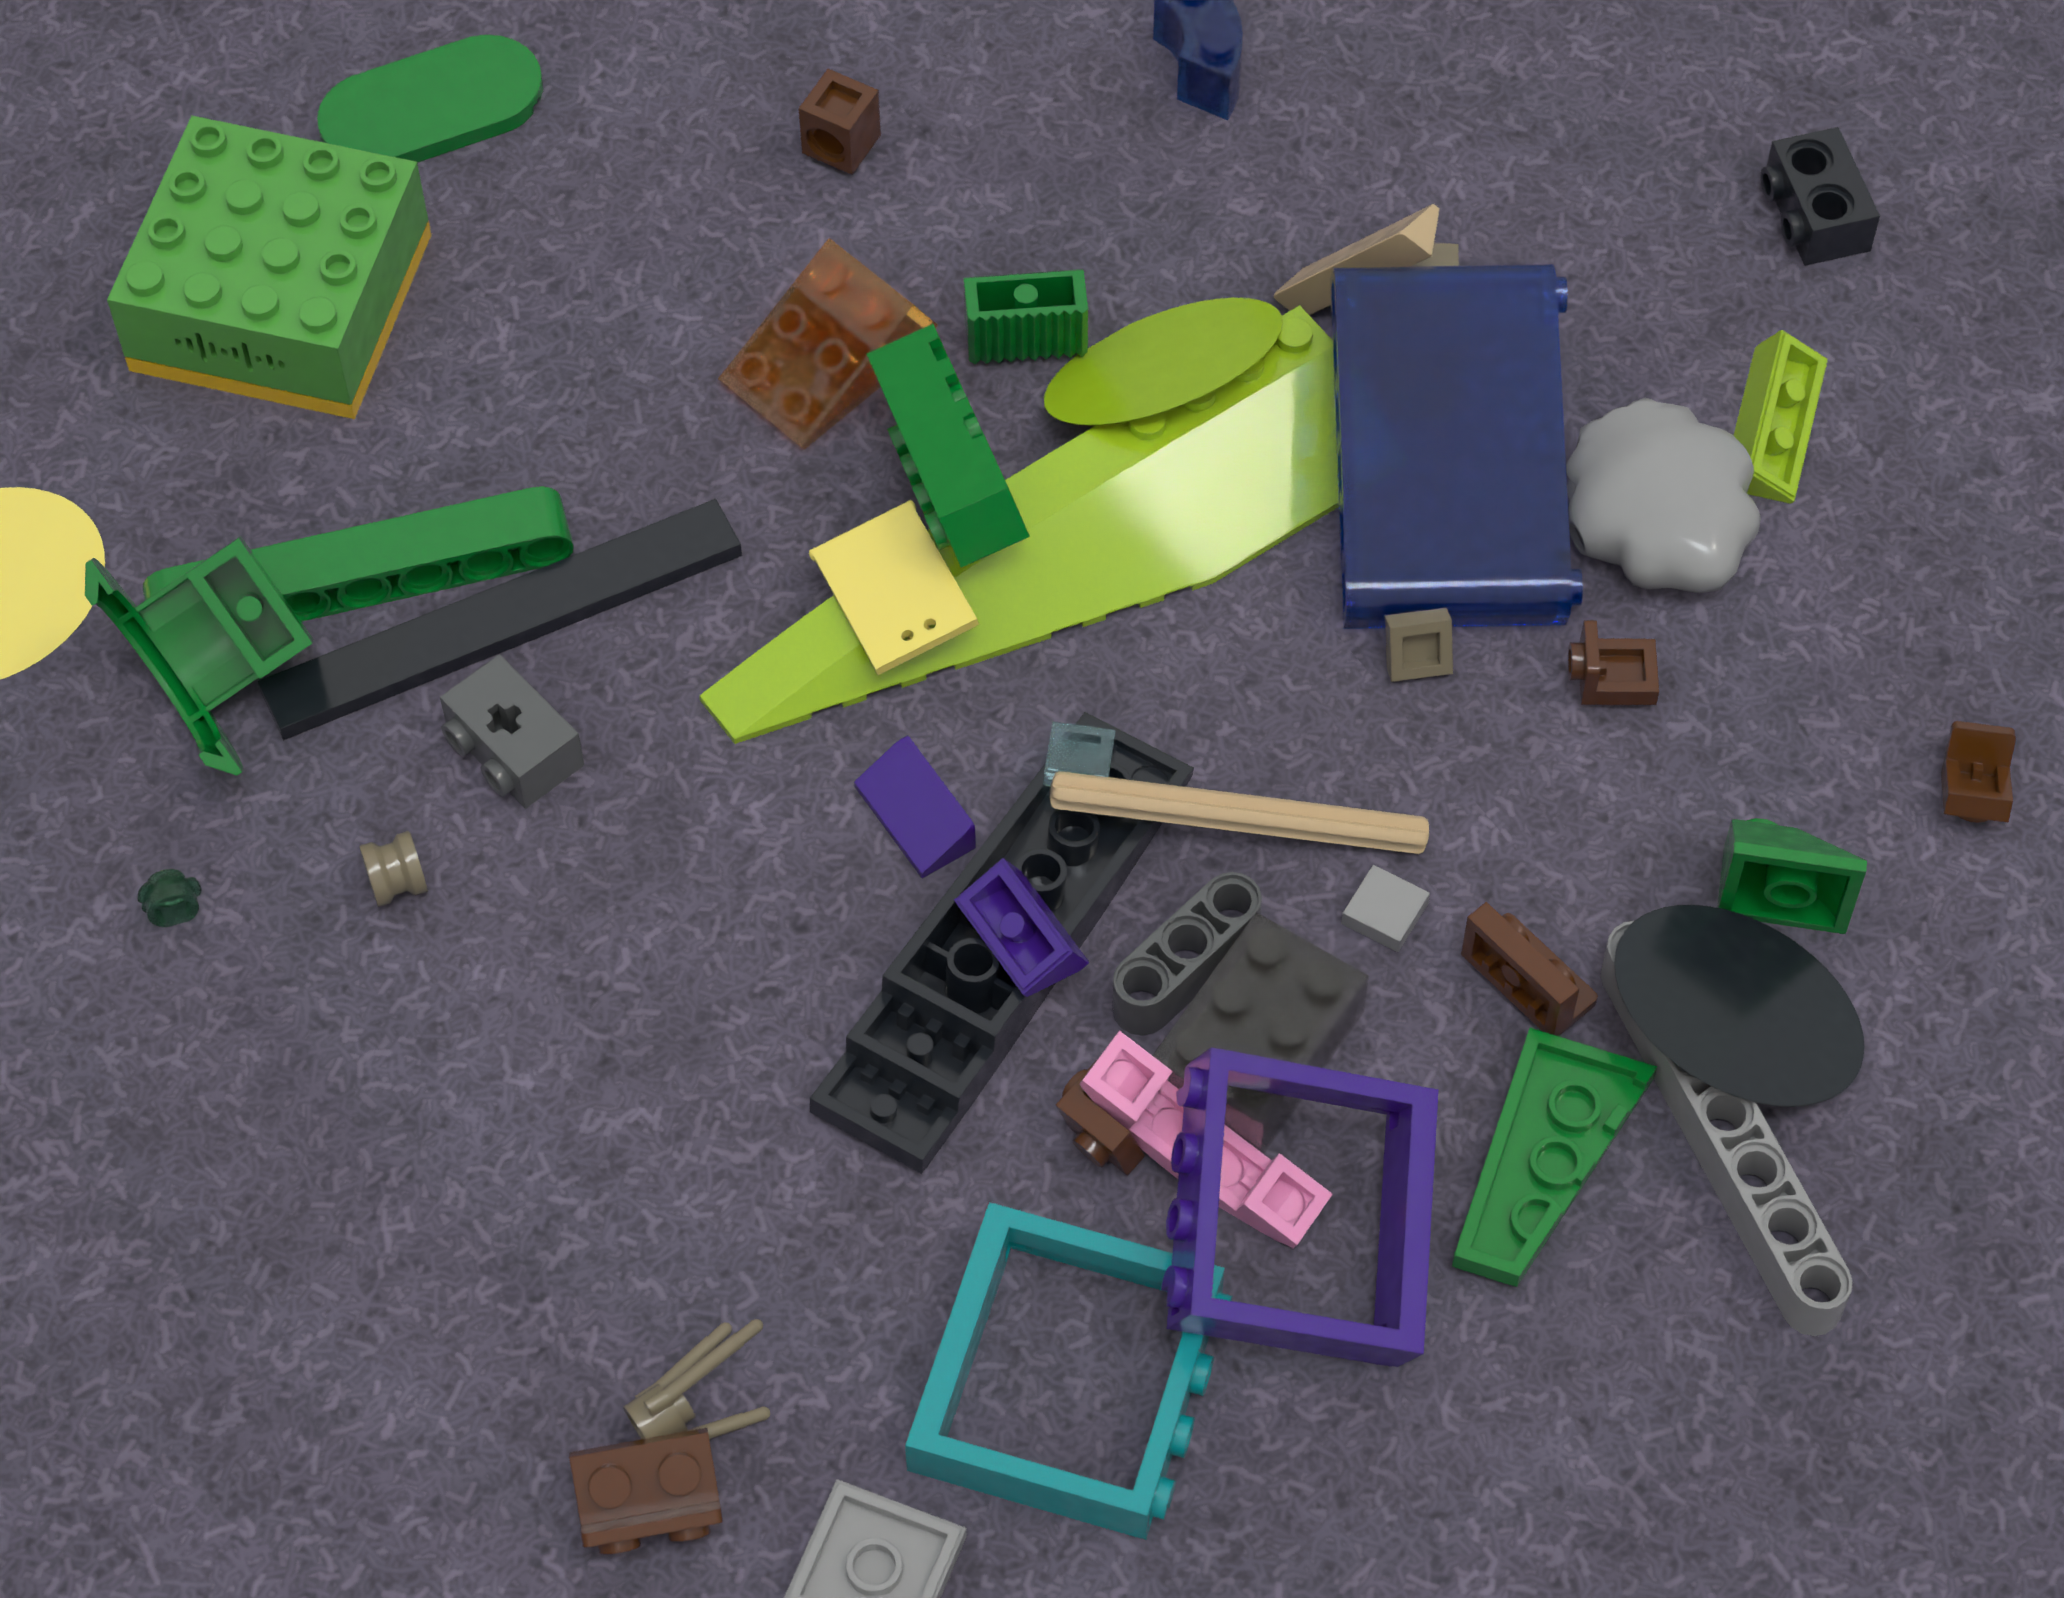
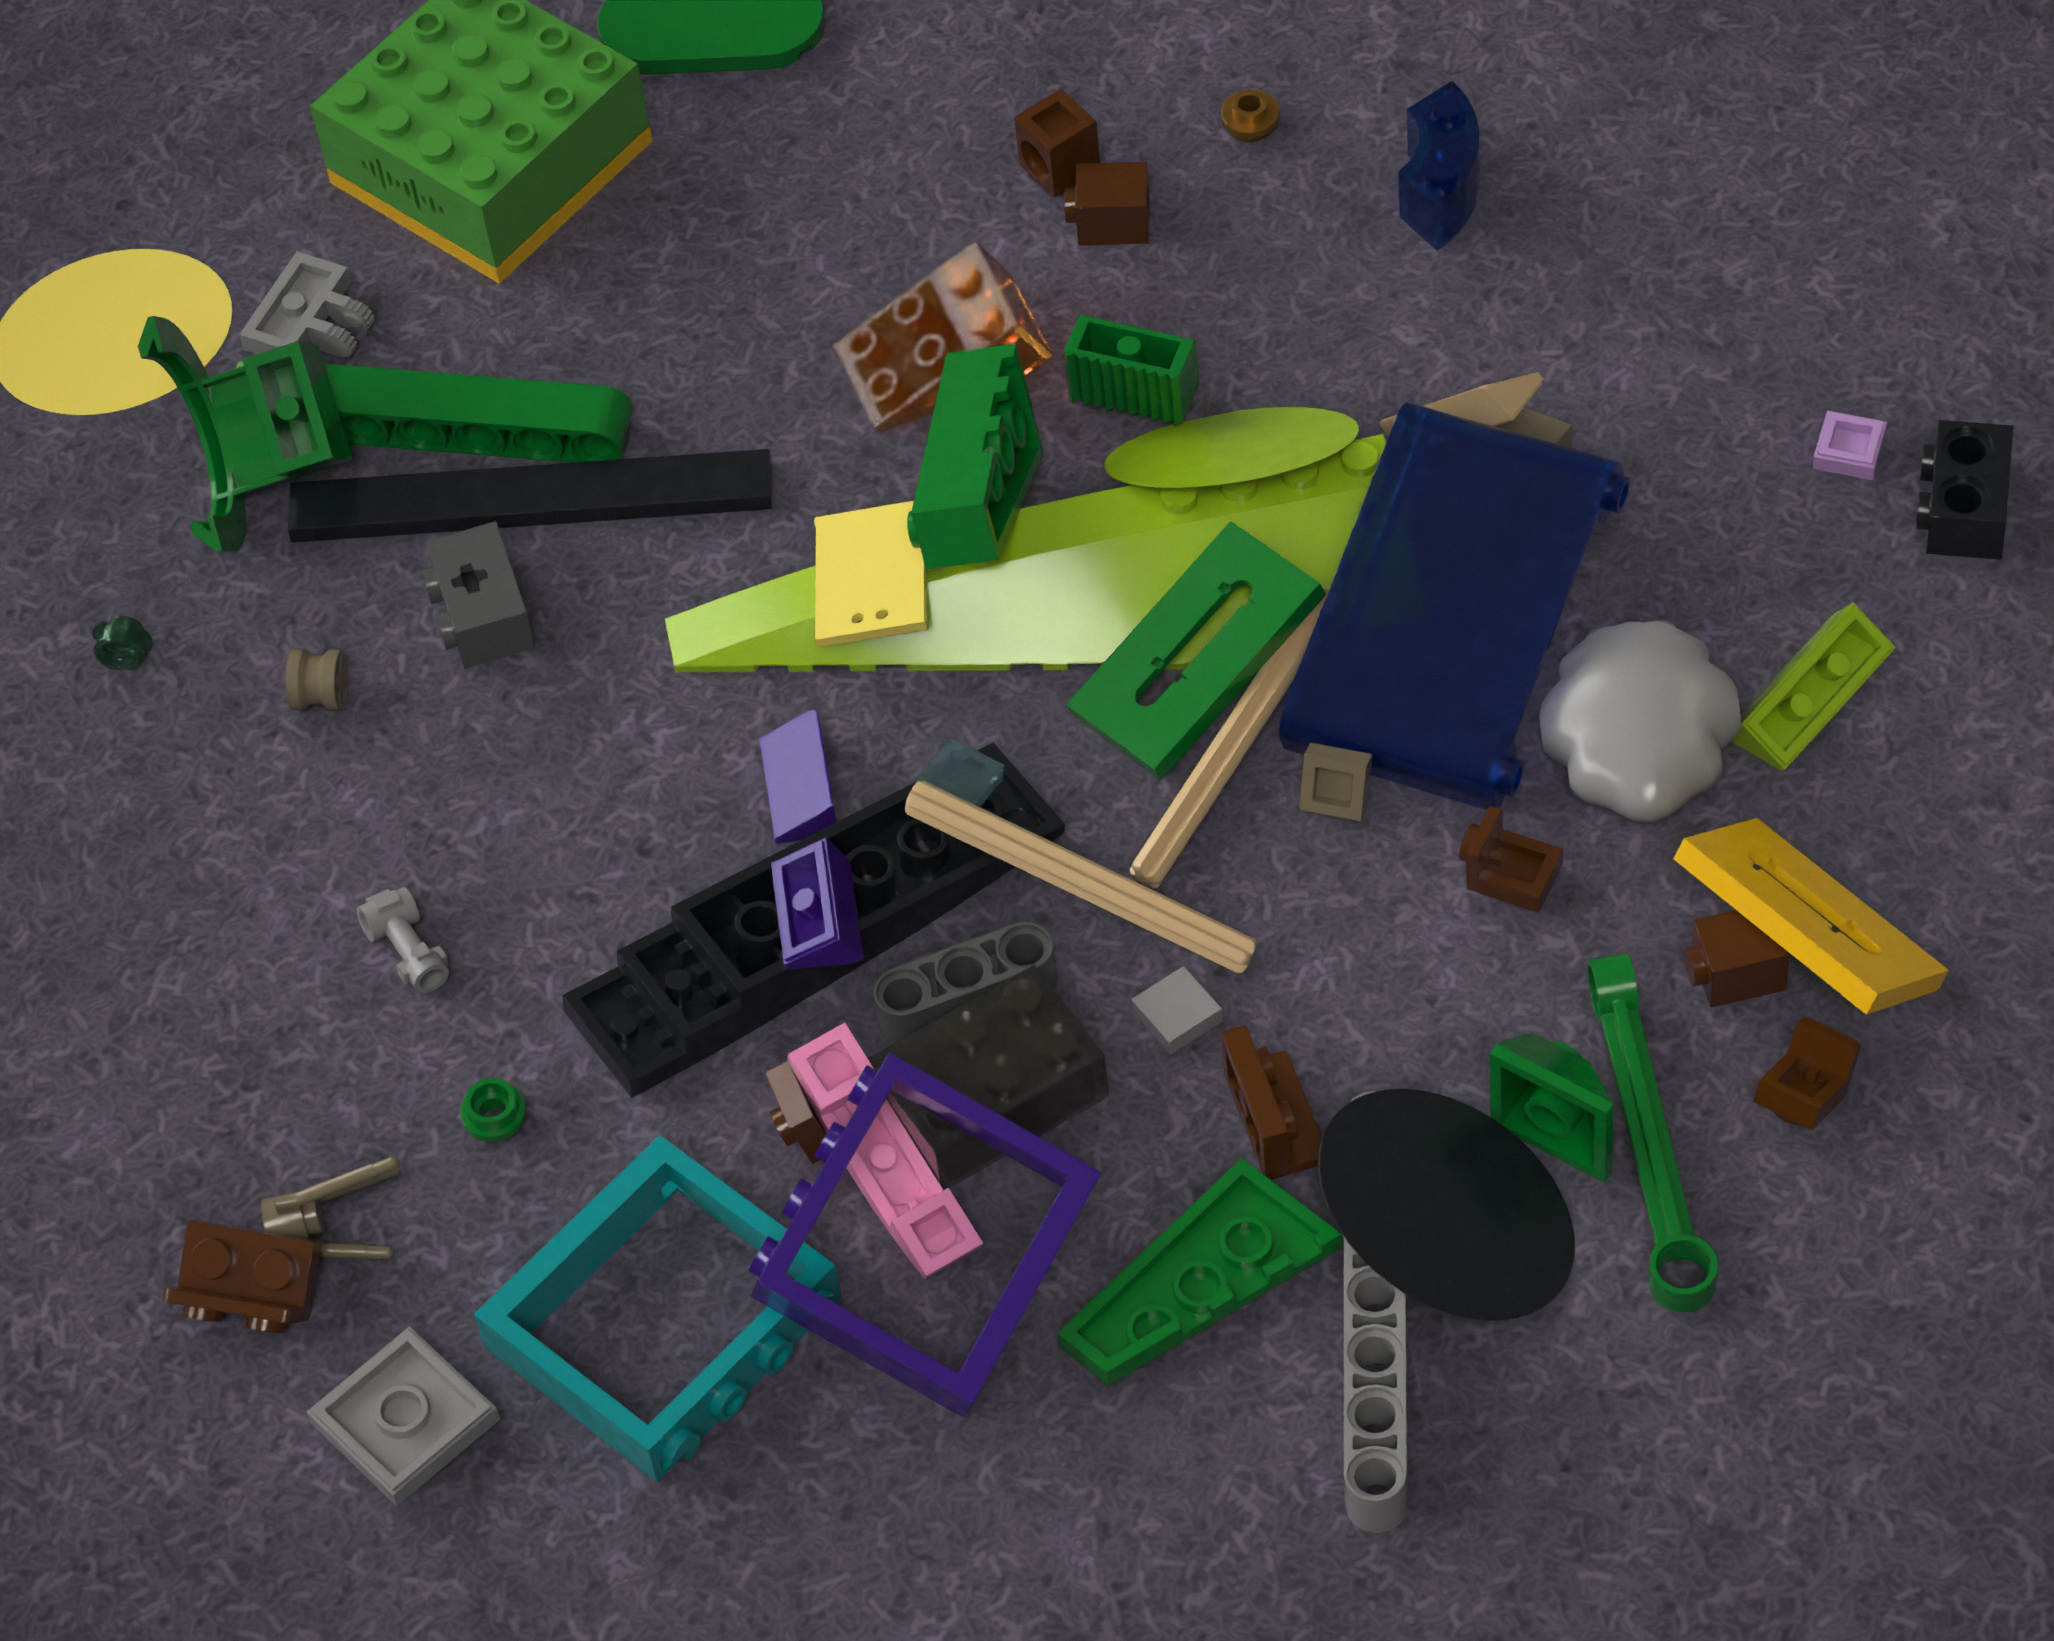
camera: 30 degrees right, 5 degrees down
(170, 507) = (299, 308): none -> light grey hinge
(593, 1078) = (392, 916): none -> light grey bar
(796, 1217) = (490, 1095): none -> green plate
(915, 164) = (1110, 203): none -> reddish brown brick
(994, 54) = (1250, 115): none -> pearl gold plate
(1236, 647) = (1166, 730): none -> green piece
(1304, 634) = (1222, 757): none -> tan axle
(1690, 188) = (1850, 445): none -> lavender tile
(1773, 760) = (1617, 1009): none -> green piece
(1858, 684) = (1734, 959): none -> reddish brown brick
(1904, 626) = (1871, 980): none -> yellow piece

